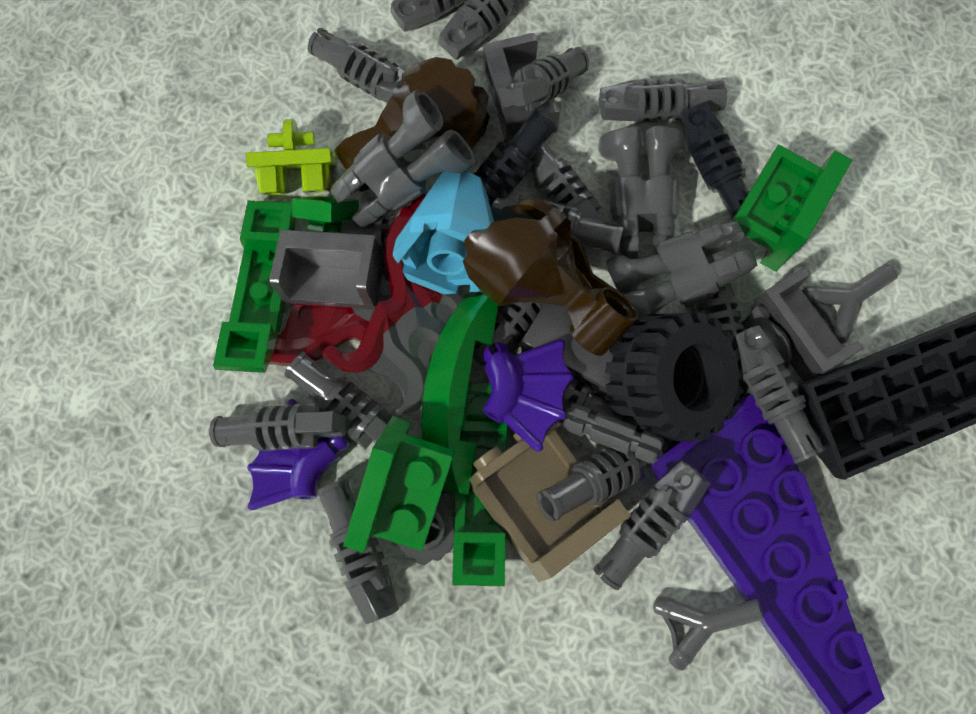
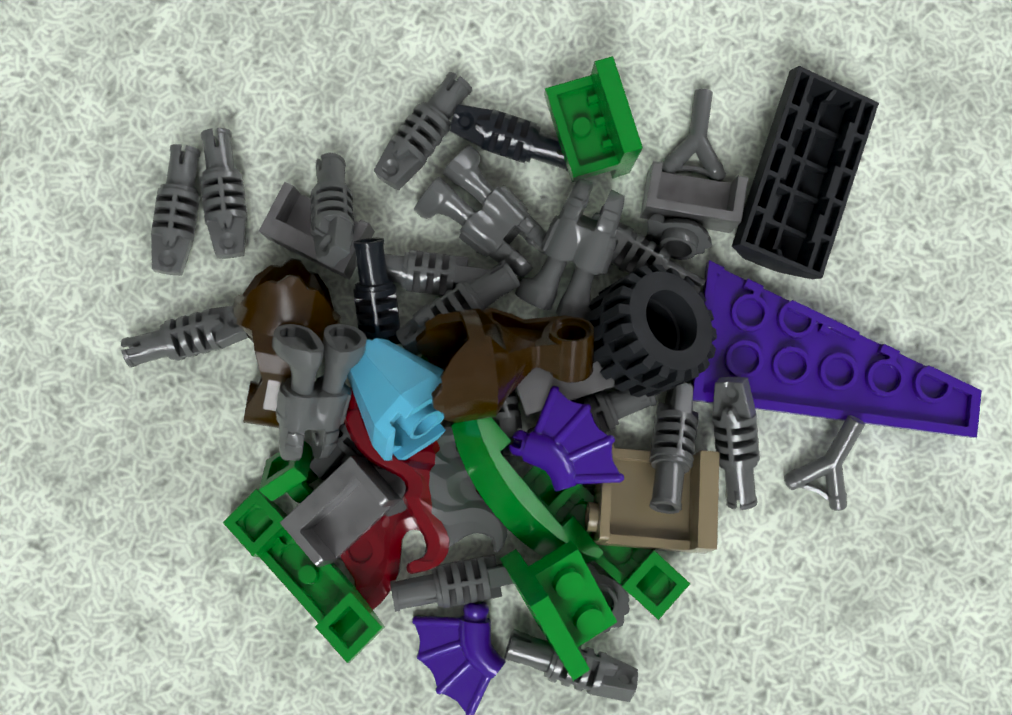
camera: 45 degrees left, 10 degrees up
(272, 165) = (210, 479): lime hips -> none
(278, 427) = (432, 650): dark grey hinge -> none
(613, 433) = (652, 411): dark grey axle -> none
(776, 392) = (723, 268): dark grey hinge -> none

